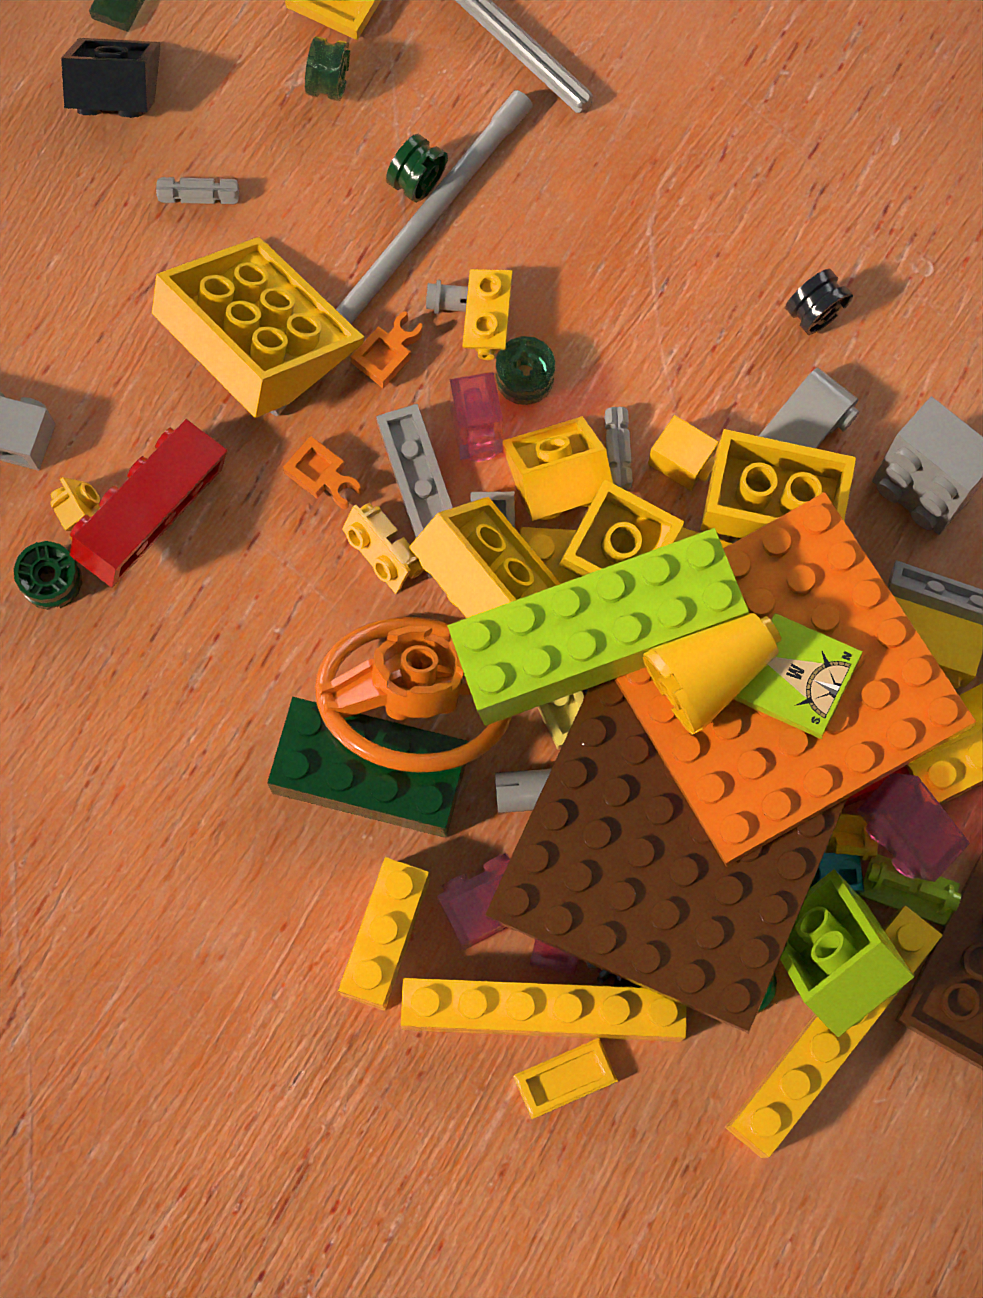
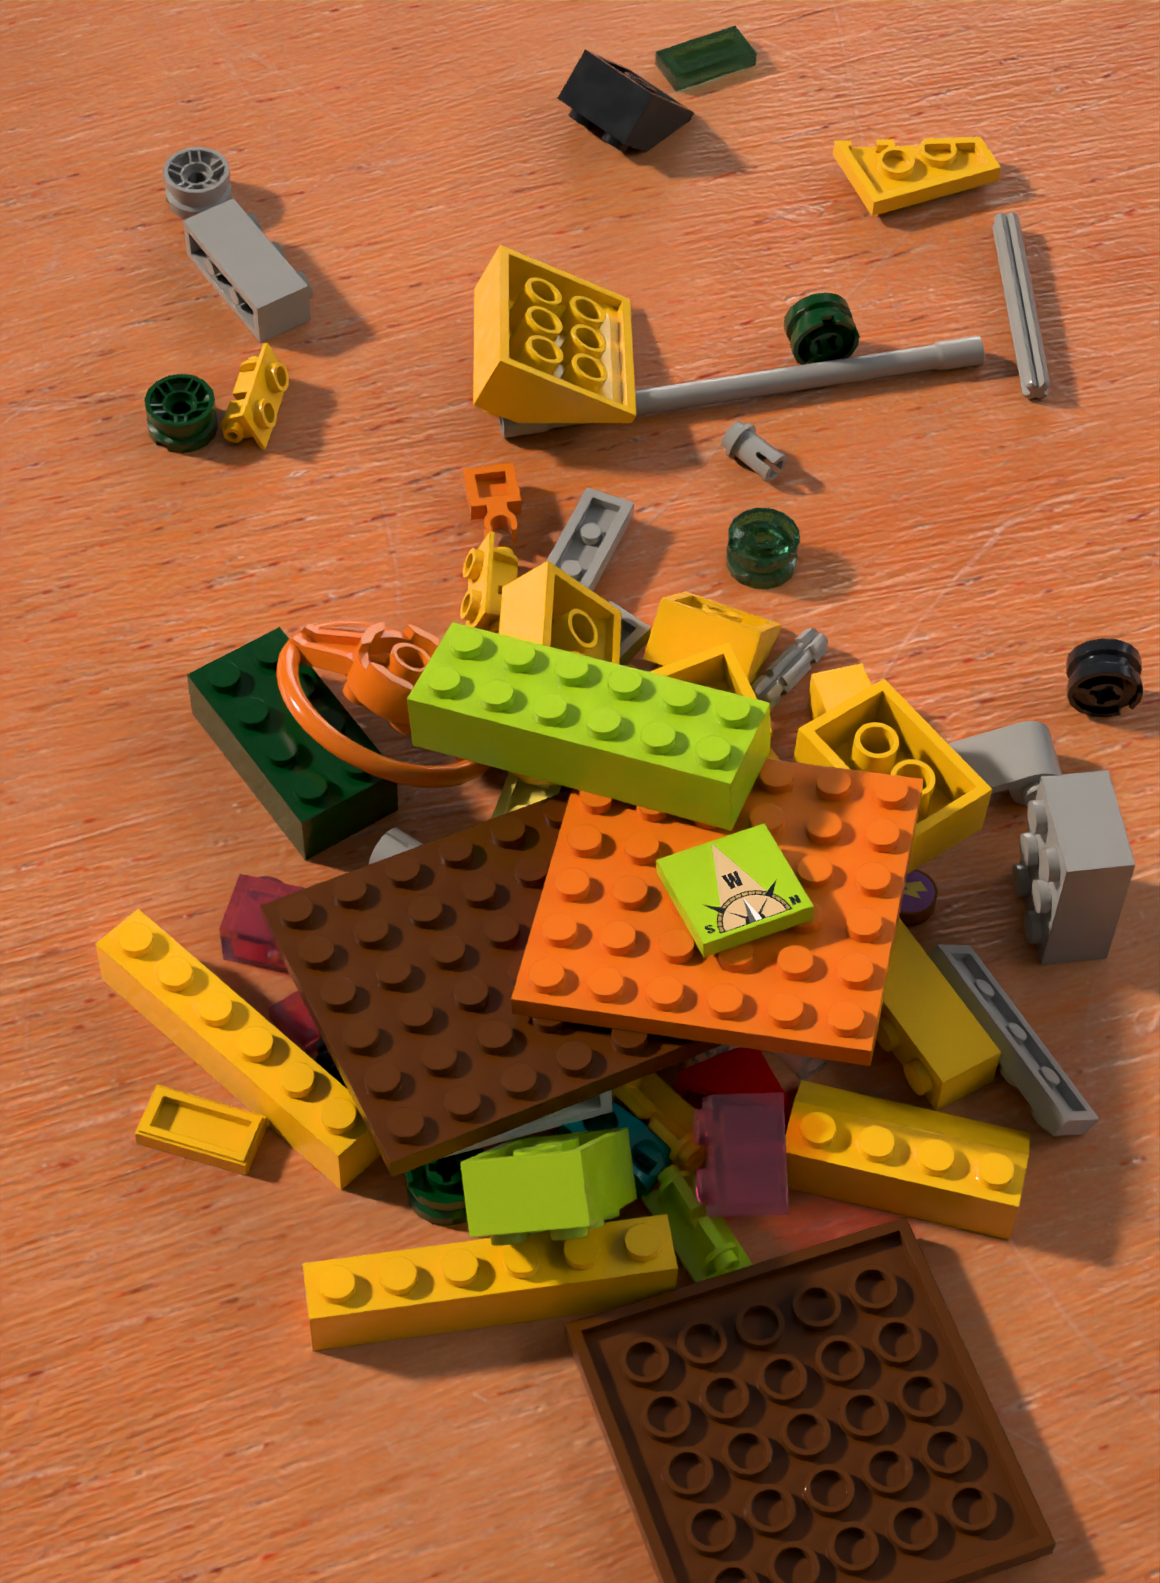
camera: 40 degrees right, 20 degrees down
(146, 502) = (316, 406): red brick -> none
(197, 190) = (611, 232): light grey axle -> none
(327, 68) = (816, 210): clear green wheel -> none
(384, 934) = (166, 873): yellow brick -> none
(386, 353) = (648, 451): orange plate -> none
(476, 416) = (673, 538): clear pink brick -> none
(487, 311) = (772, 475): yellow hinge -> none
(711, 667) = (652, 809): yellow cone -> none

